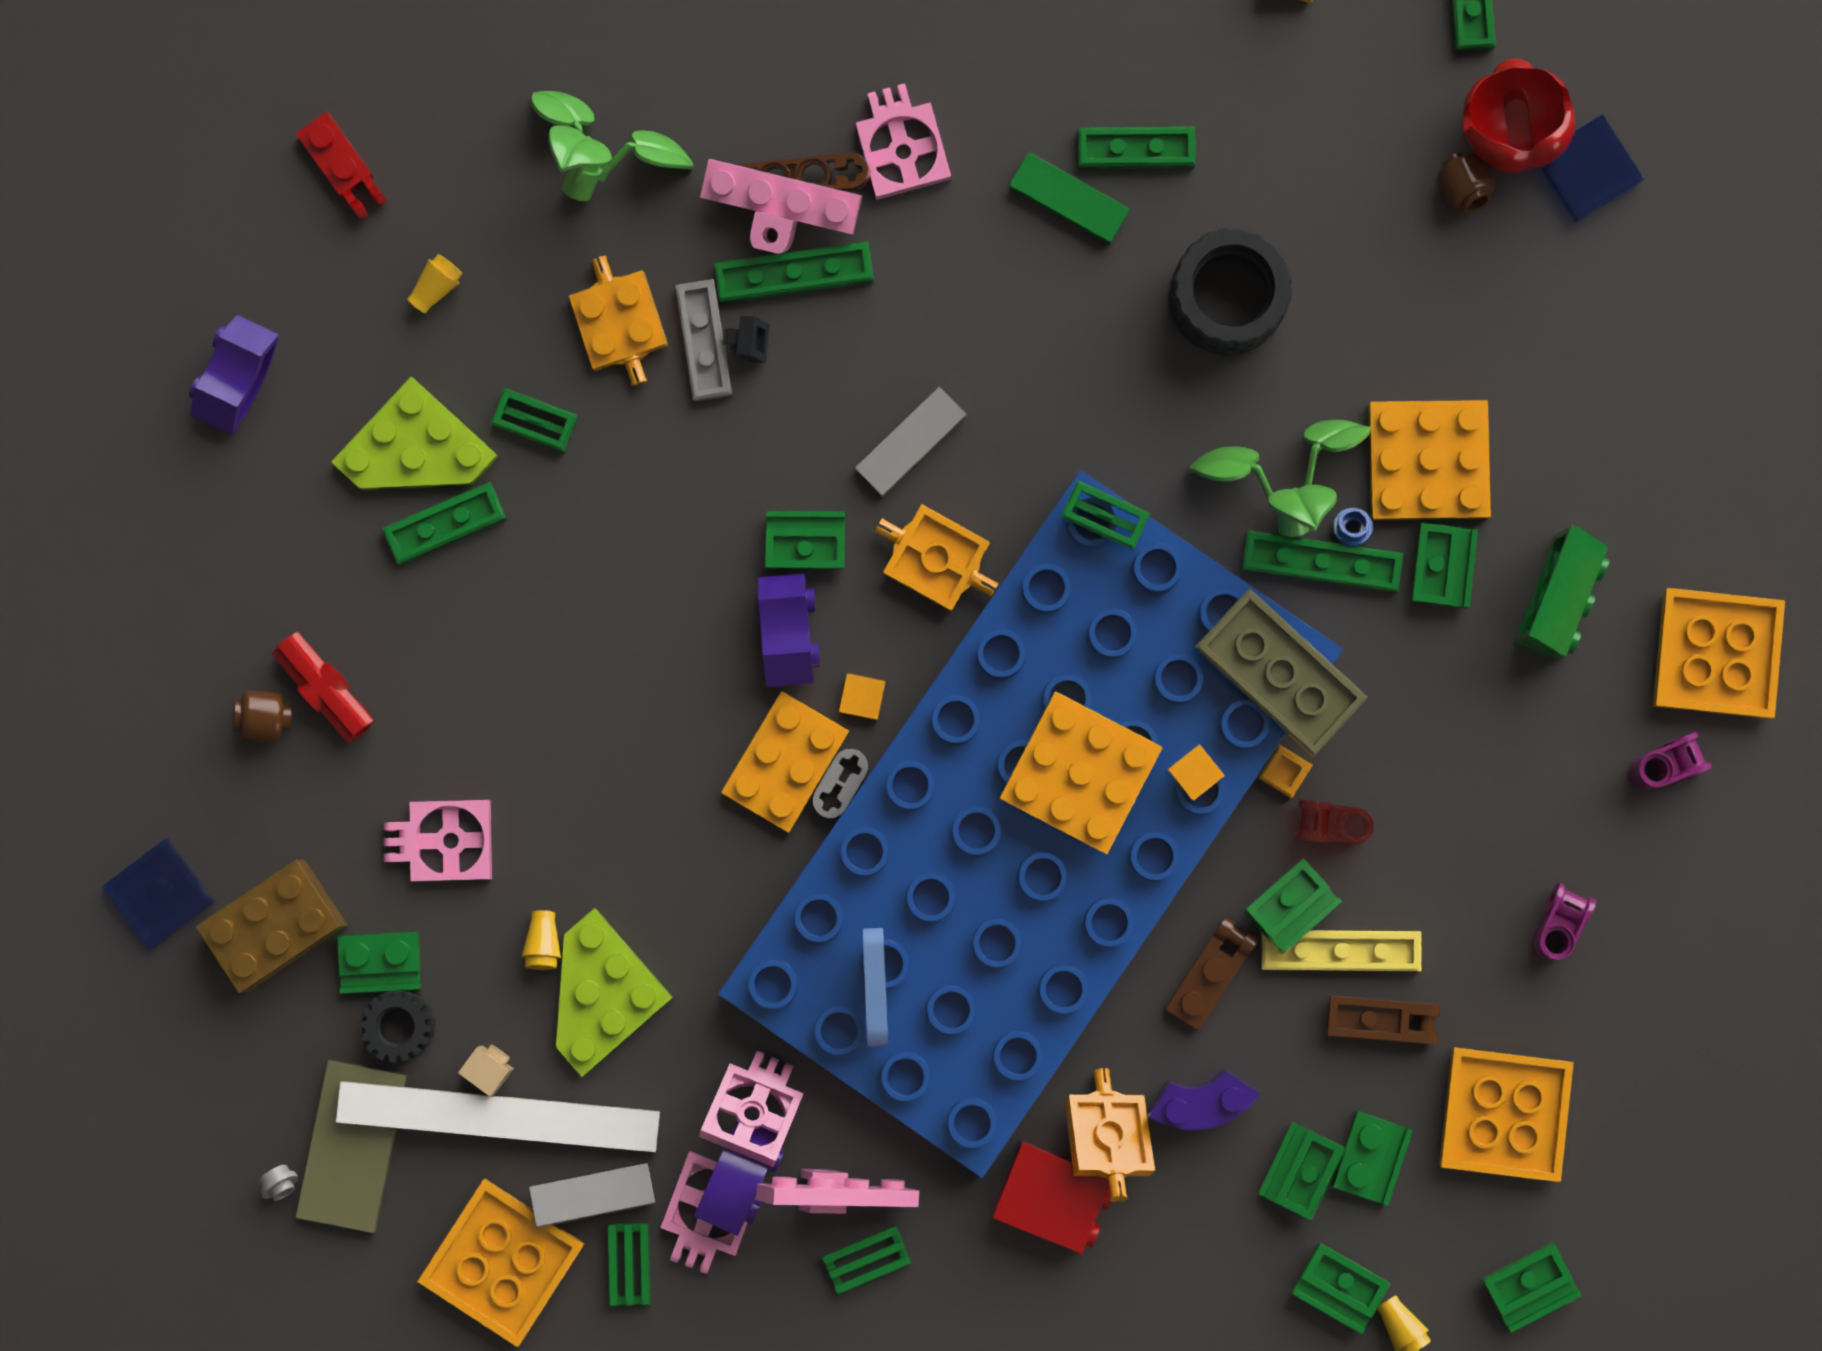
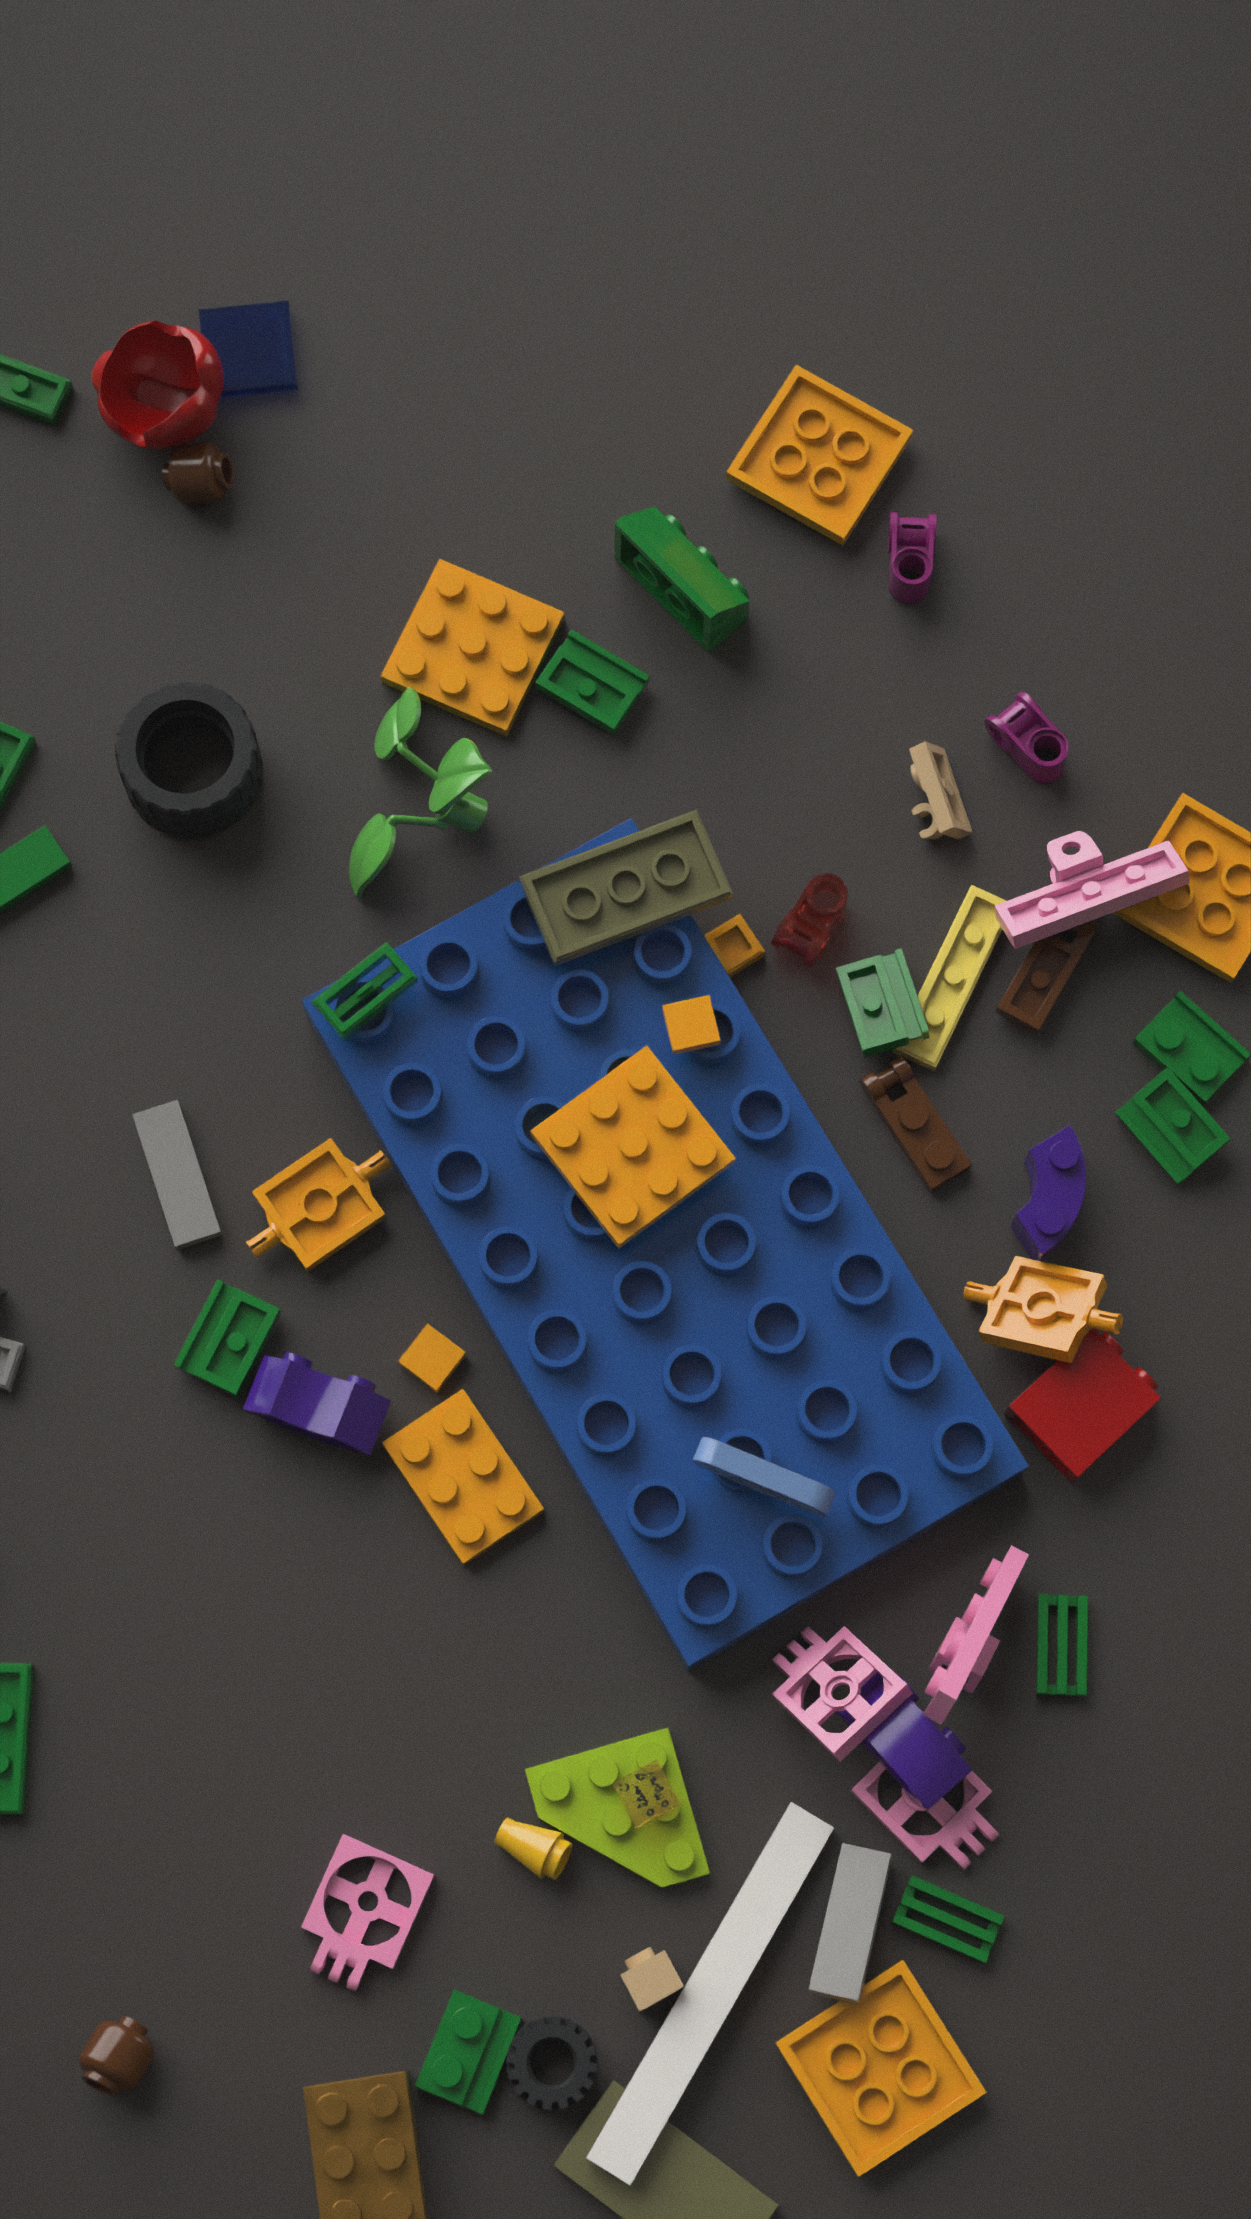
camera: 70 degrees left, 10 degrees down
(323, 687) = (119, 1966): red piece -> none
(613, 1005) = (646, 1794): none -> clear yellow tile
(832, 778) = (507, 1433): light grey beam -> none
(1322, 561) = (525, 805): green tile -> none
(1357, 517) = (499, 745): blue plate -> none
(1457, 1024) = (1088, 889): none -> bright pink plate
(1492, 867) = (935, 777): none -> tan plate

